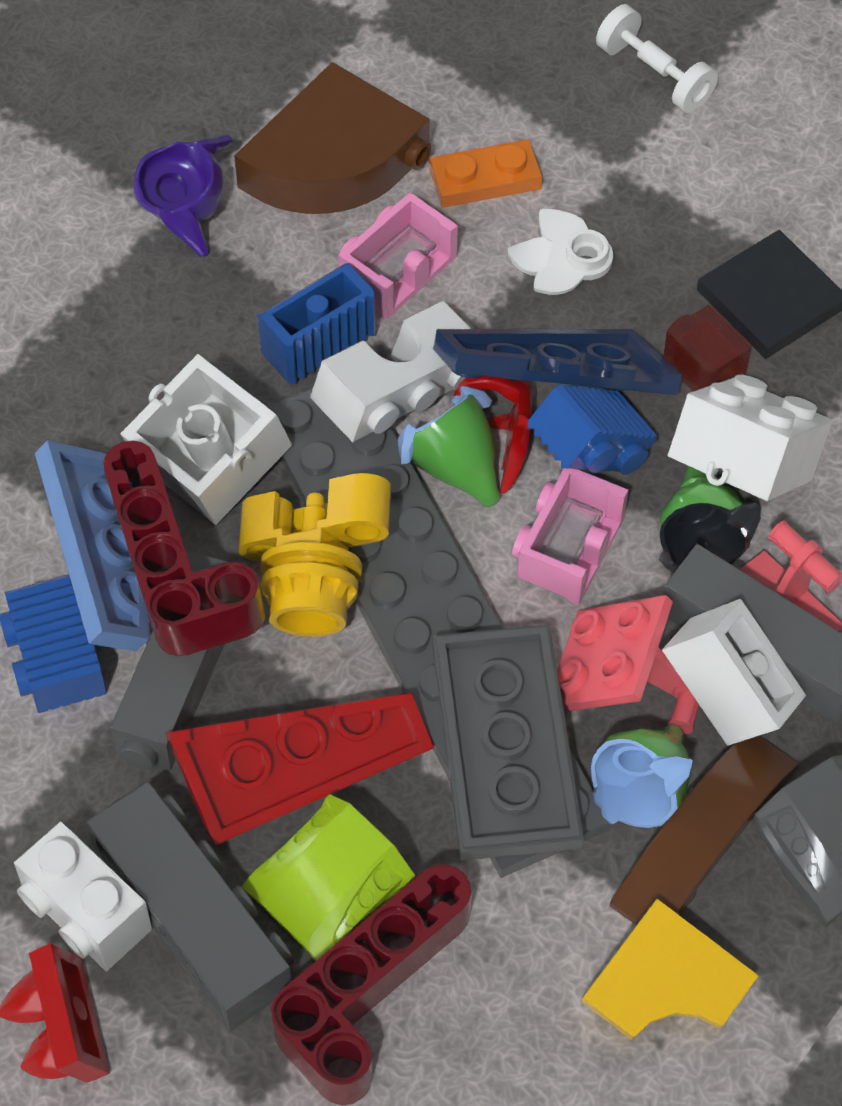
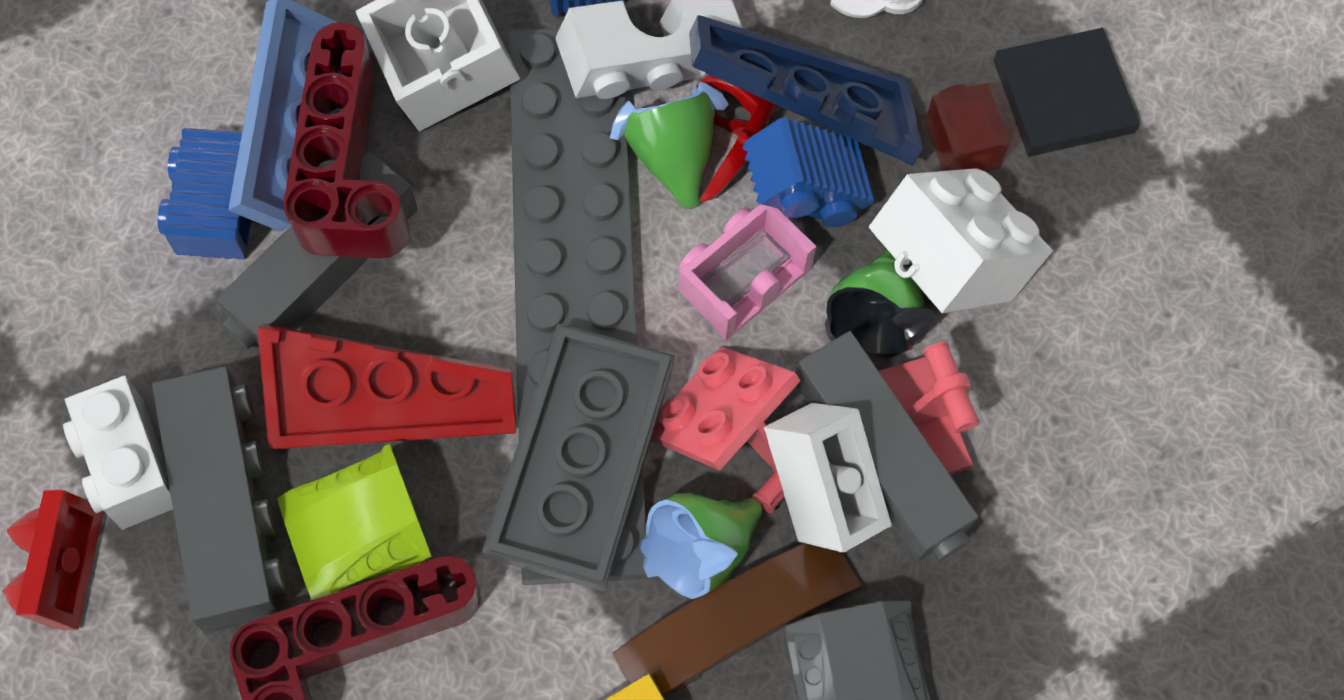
camera: 20 degrees right, 10 degrees up
(305, 550) = (480, 192): yellow beam -> none

